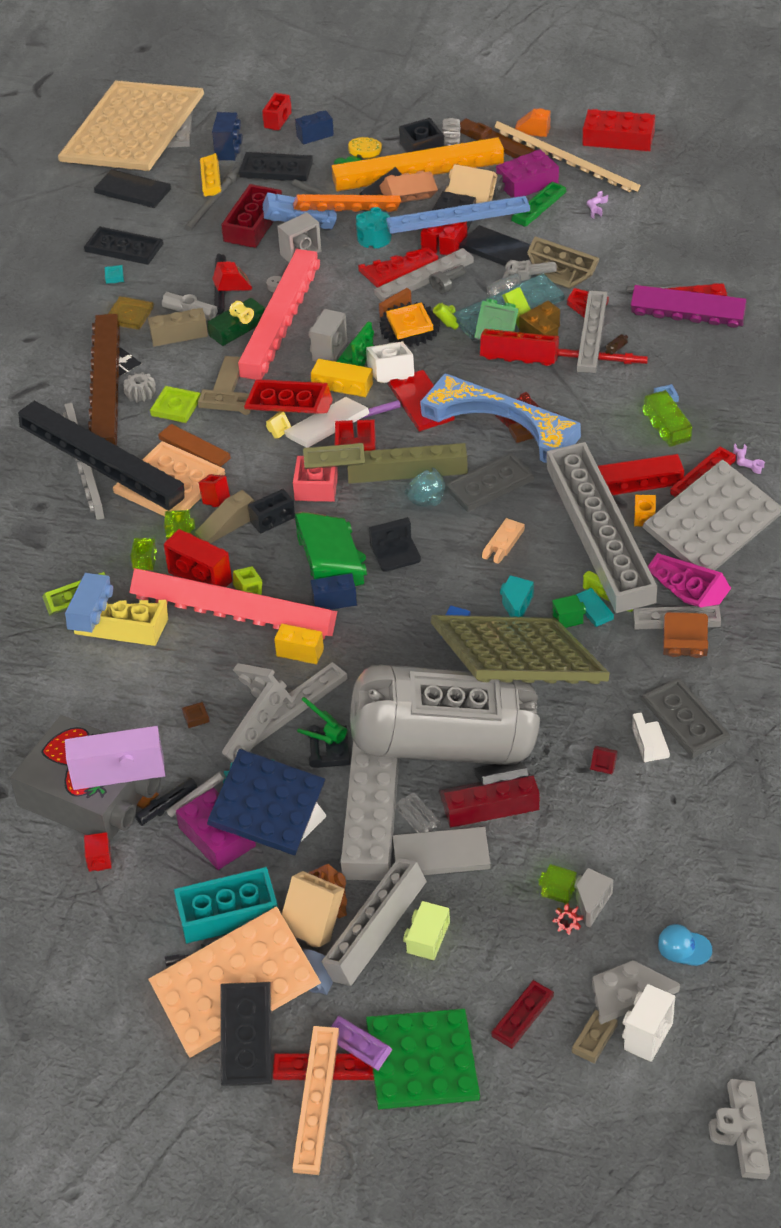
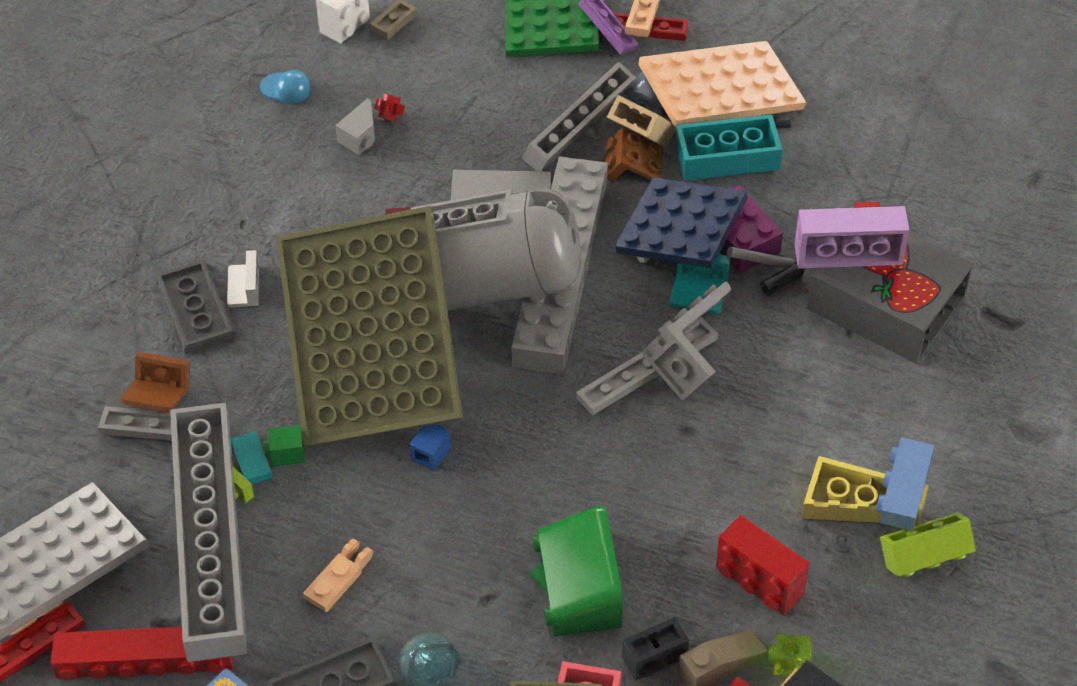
camera: 175 degrees left, 5 degrees up
(143, 553) = (836, 618): clear neon green brick -> none
(195, 715) = (763, 375): reddish brown tile -> none
(231, 601) = (714, 503): coral brick -> none
(246, 1034) = (711, 36): black tile -> none
(247, 580) = (695, 532): lime brick -> none
(299, 643) = (631, 439): yellow brick -> none
(333, 730) = (601, 310): green plant -> none
(334, 592) = (575, 500): dark blue brick -> none
(336, 753) = (598, 317): black plate -> none
(393, 544) = (488, 574): black bracket -> none
(427, 930) = (528, 114): yellowish green brick -> none
(517, 595) = (343, 475): teal slope -> none
(522, 1014) = (453, 47): dark red tile -> none
(558, 883) = (389, 141): clear neon green brick -> none
(618, 988) = (352, 48): light grey wing -> none
(644, 508) = (132, 598): light orange brick -> none
(689, 581) = (118, 461): dark pink wedge -> none

